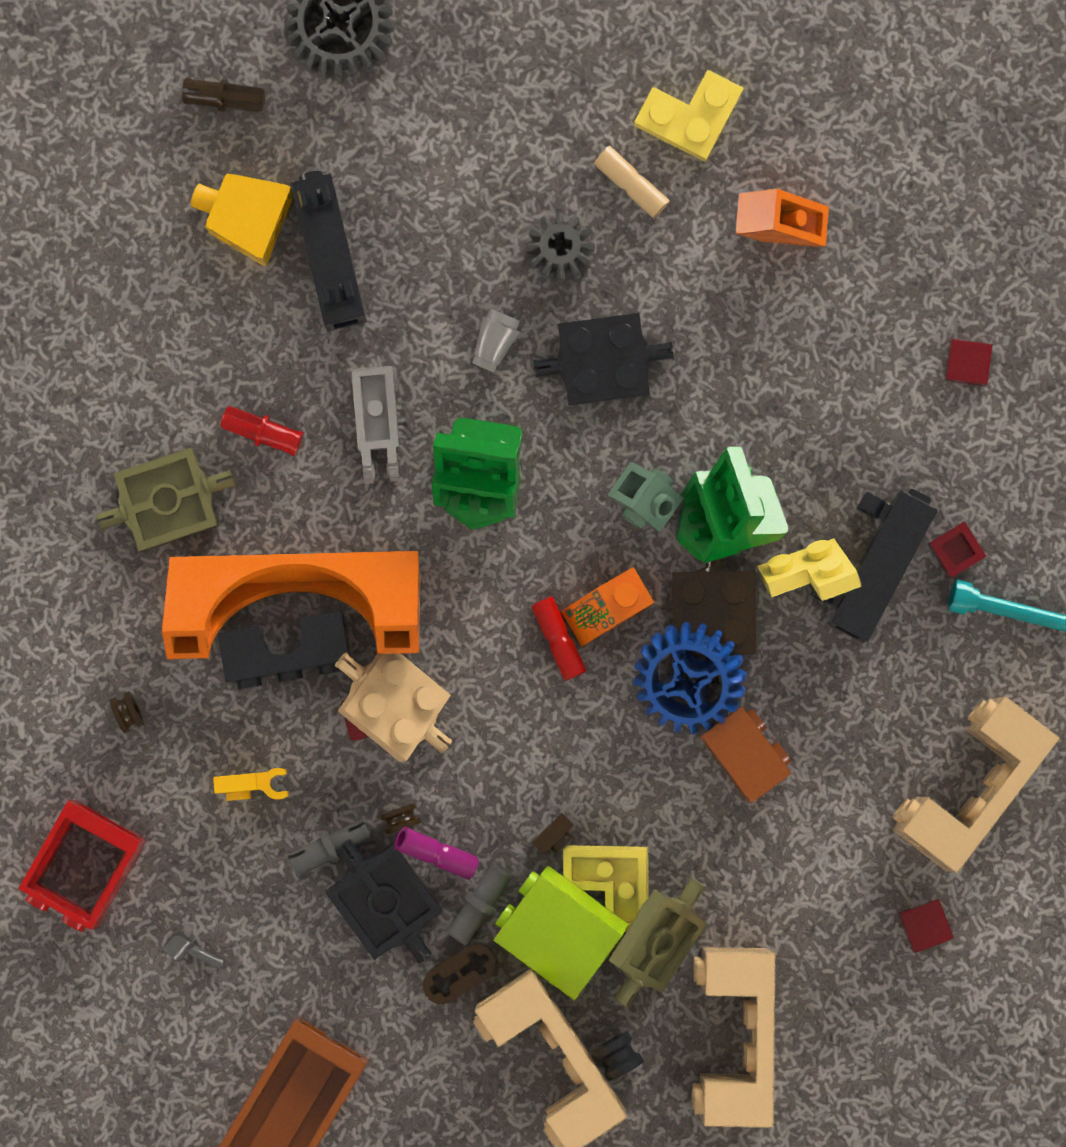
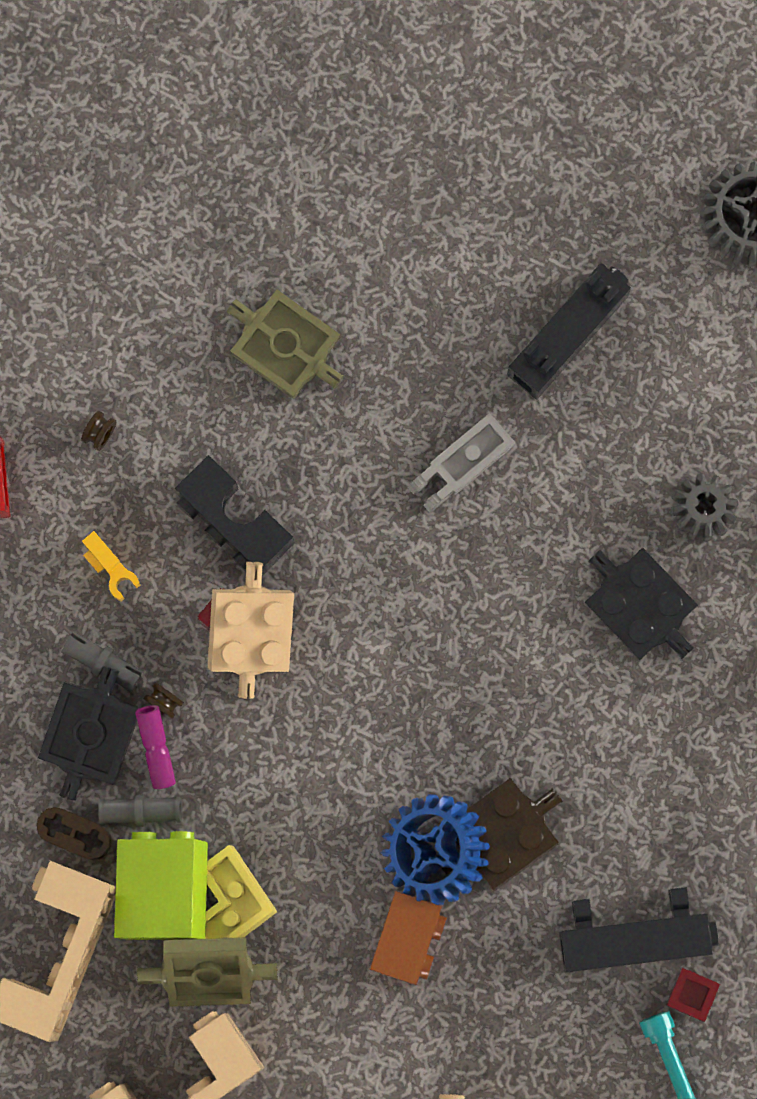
camera: 55 degrees right, 5 degrees down
(211, 589) = (239, 427): orange arch -> none
(224, 95) = (633, 165): dark brown axle -> none
(245, 213) = (552, 246): yellow torso -> none
(261, 430) = (392, 379): red axle -> none
(477, 471) = (479, 567): green piece -> none
(494, 339) = (594, 507): light grey cone -> none
(555, 835) = (235, 831): dark brown plate -> none
(557, 635) = (391, 729): red piece -> none
(607, 606) = (446, 745): orange slope -> none
(617, 1056) = (94, 1005): black wheel -> none
(653, 500) = (554, 713): sand green brick -> none
(728, 510) = (592, 787): green piece -> none
(820, 564) = (600, 890): light yellow plate -> none

